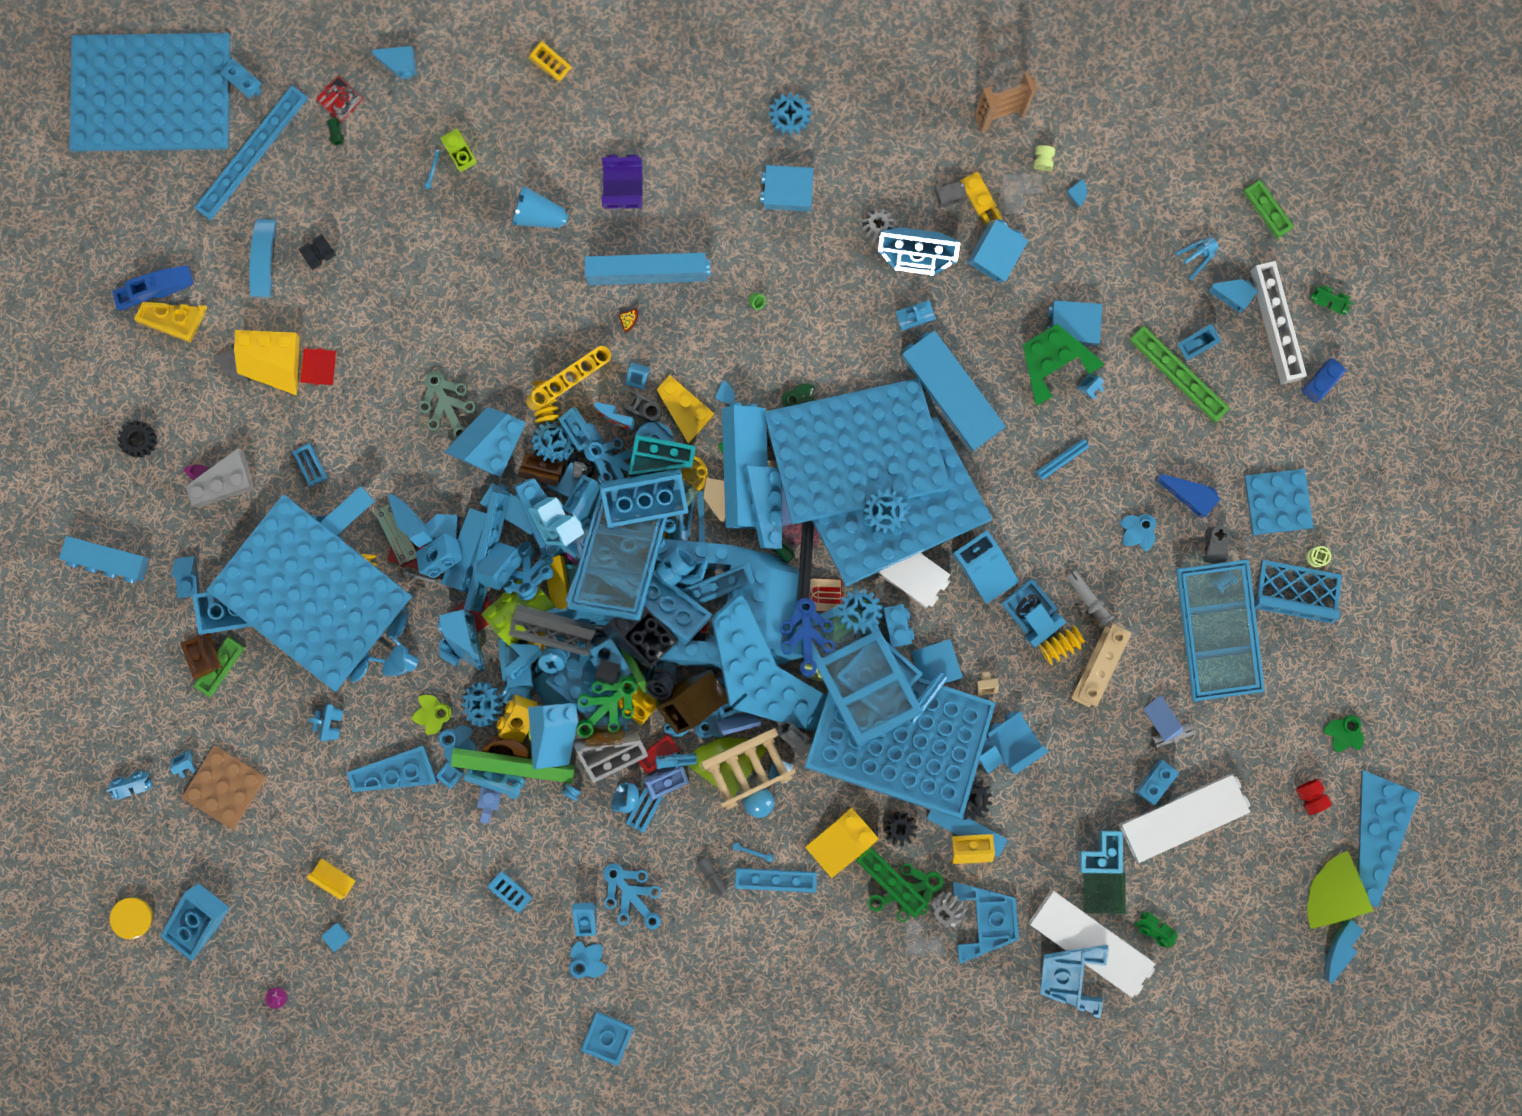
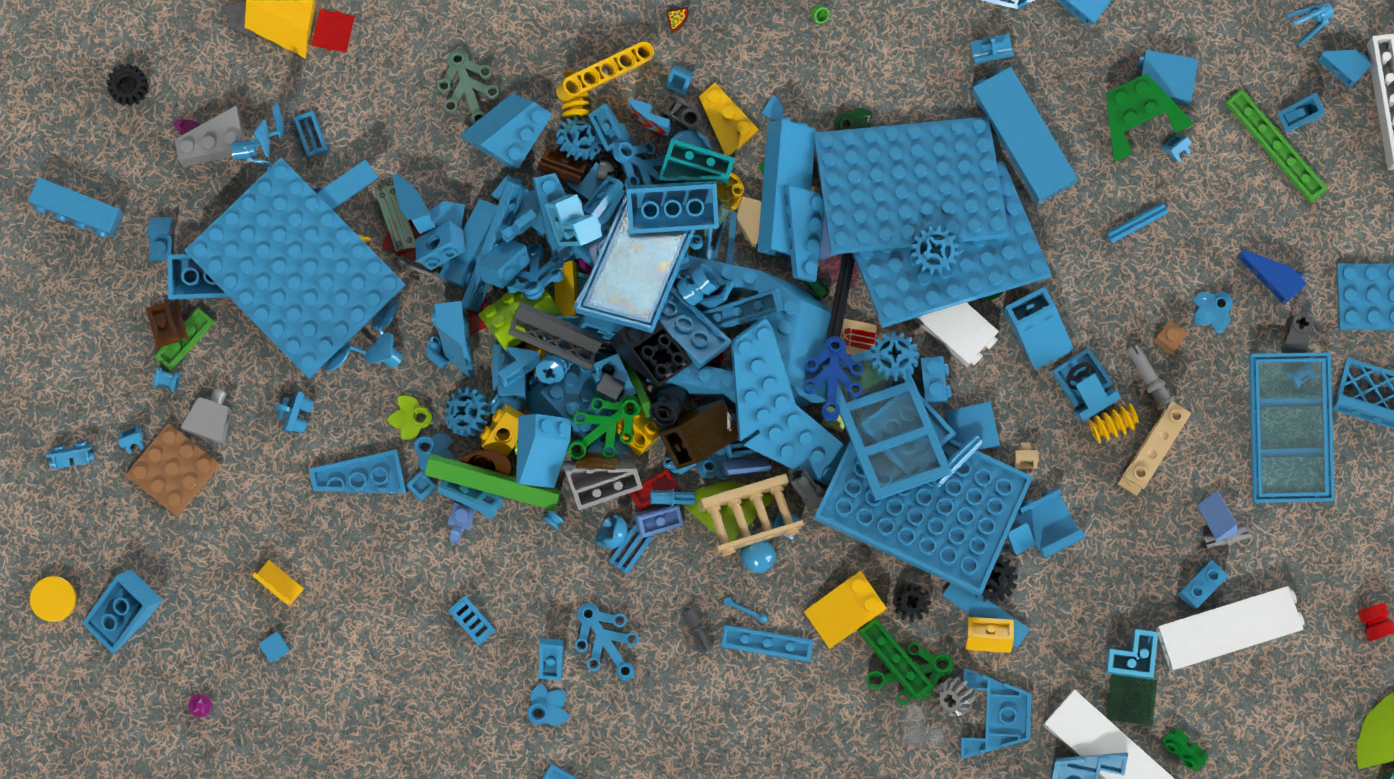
camera: 10 degrees right, 5 degrees down
(207, 706) = (166, 379): none -> dark azure bush
(250, 737) = (209, 418): none -> light grey torso
(262, 479) = (247, 148): none -> dark azure plant
(511, 525) = (522, 222): none -> dark azure plate
(1104, 561) = (1170, 337): none -> medium nougat brick

